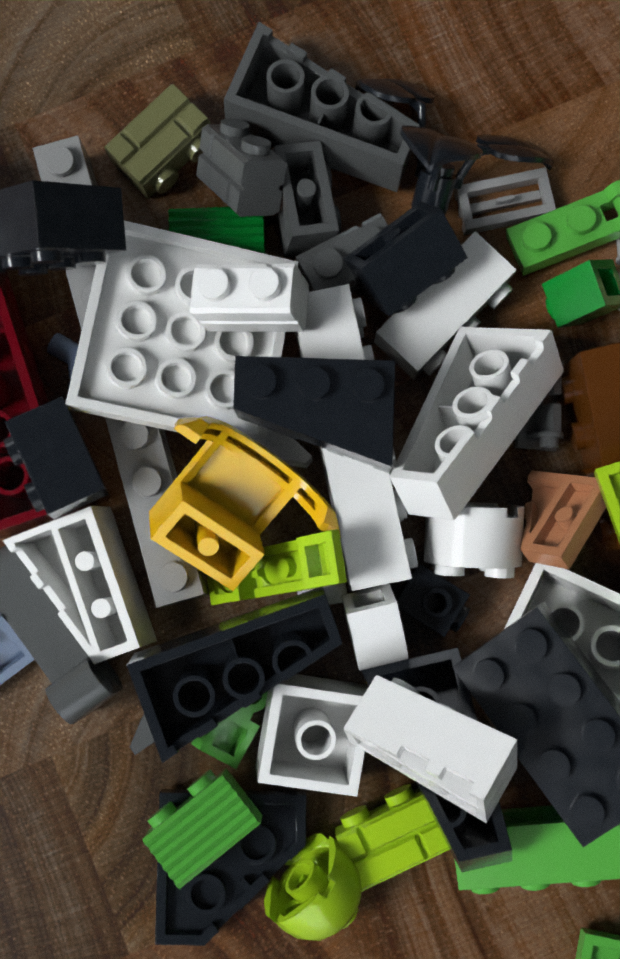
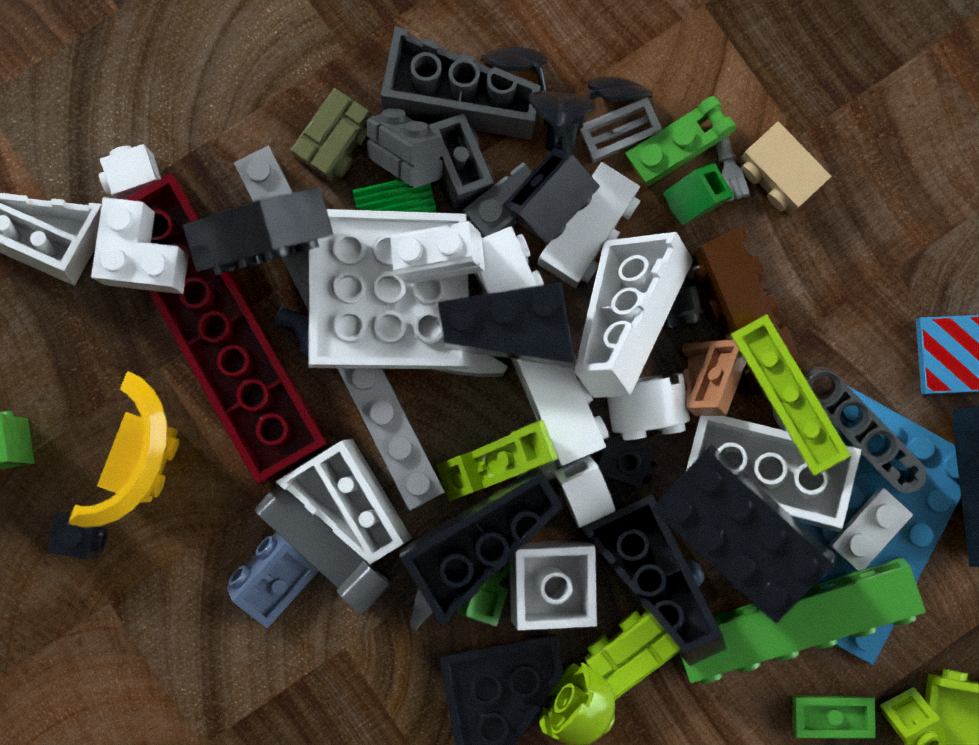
camera: 20 degrees left, 0 degrees up
(54, 458) = (308, 408): black brick -> none
(202, 827) = (479, 674): bright green brick -> none
(227, 500) = (450, 413): yellow piece -> none
(434, 745) = (648, 570): white wedge -> none

